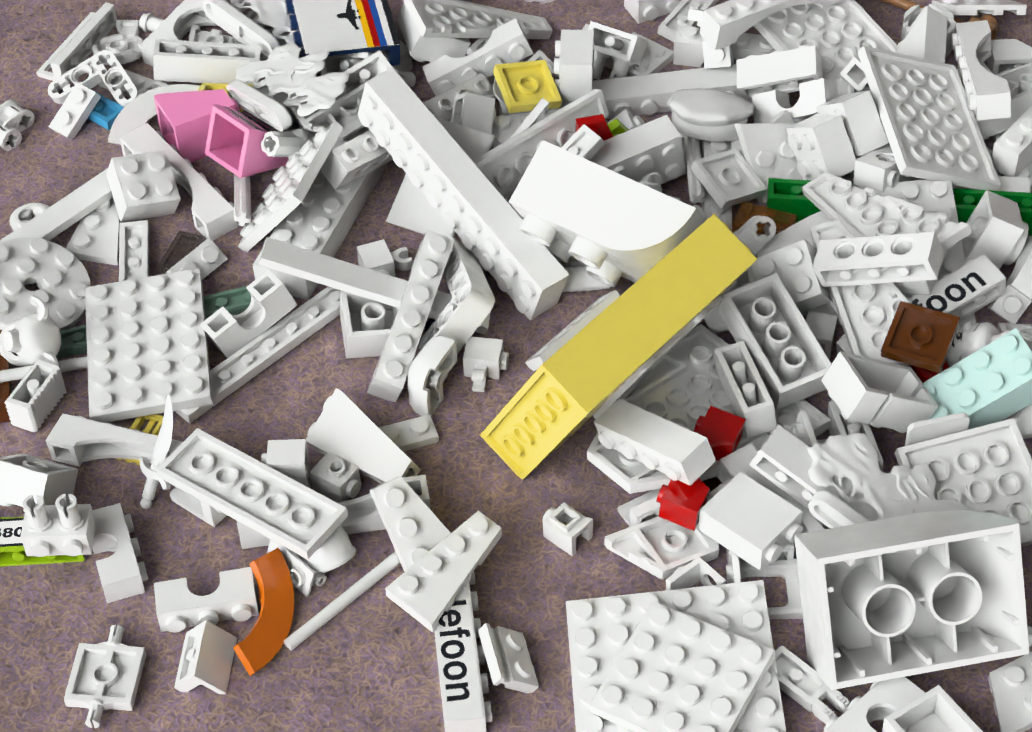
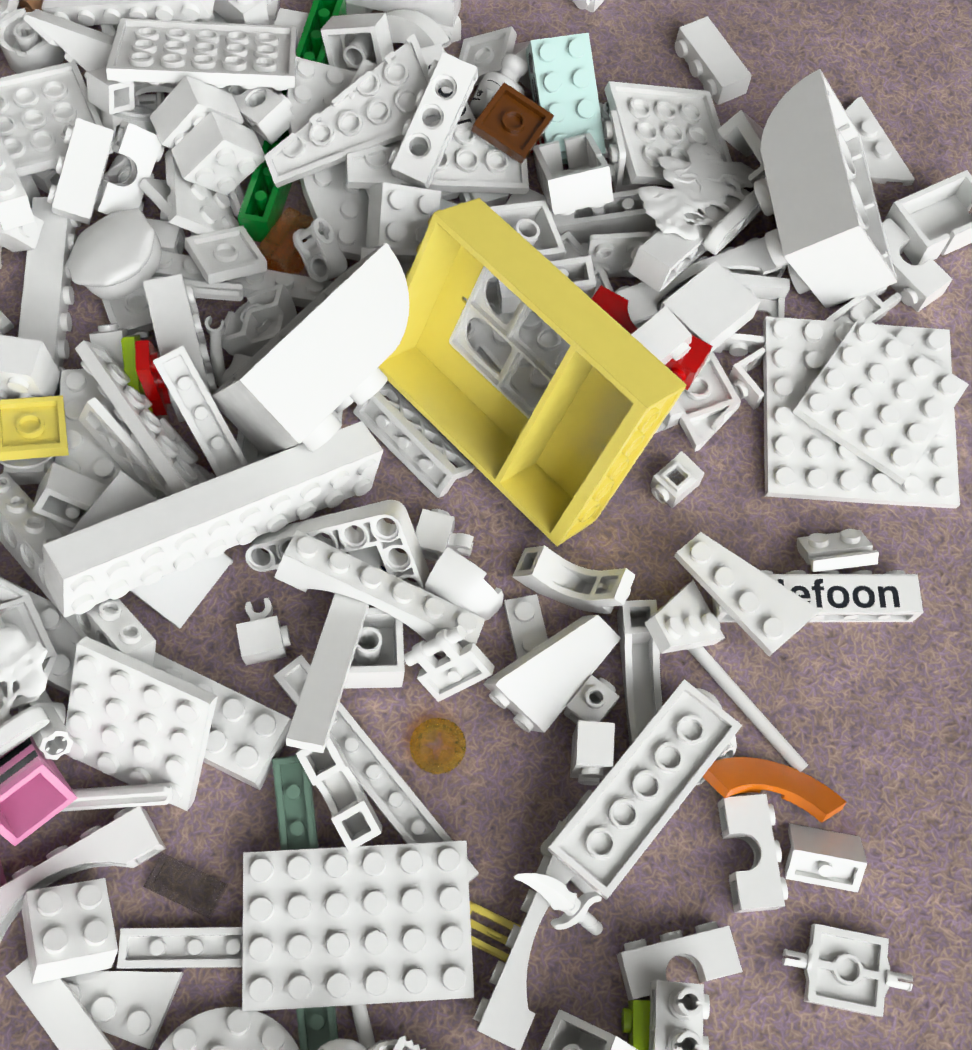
camera: 90 degrees left, 20 degrees up
(205, 256) = (215, 861): white plate -> none
(285, 380) = (427, 733): none -> clear yellow gear
(356, 371) = (453, 672): none -> white plate
(451, 449) = (571, 584): none -> white arch

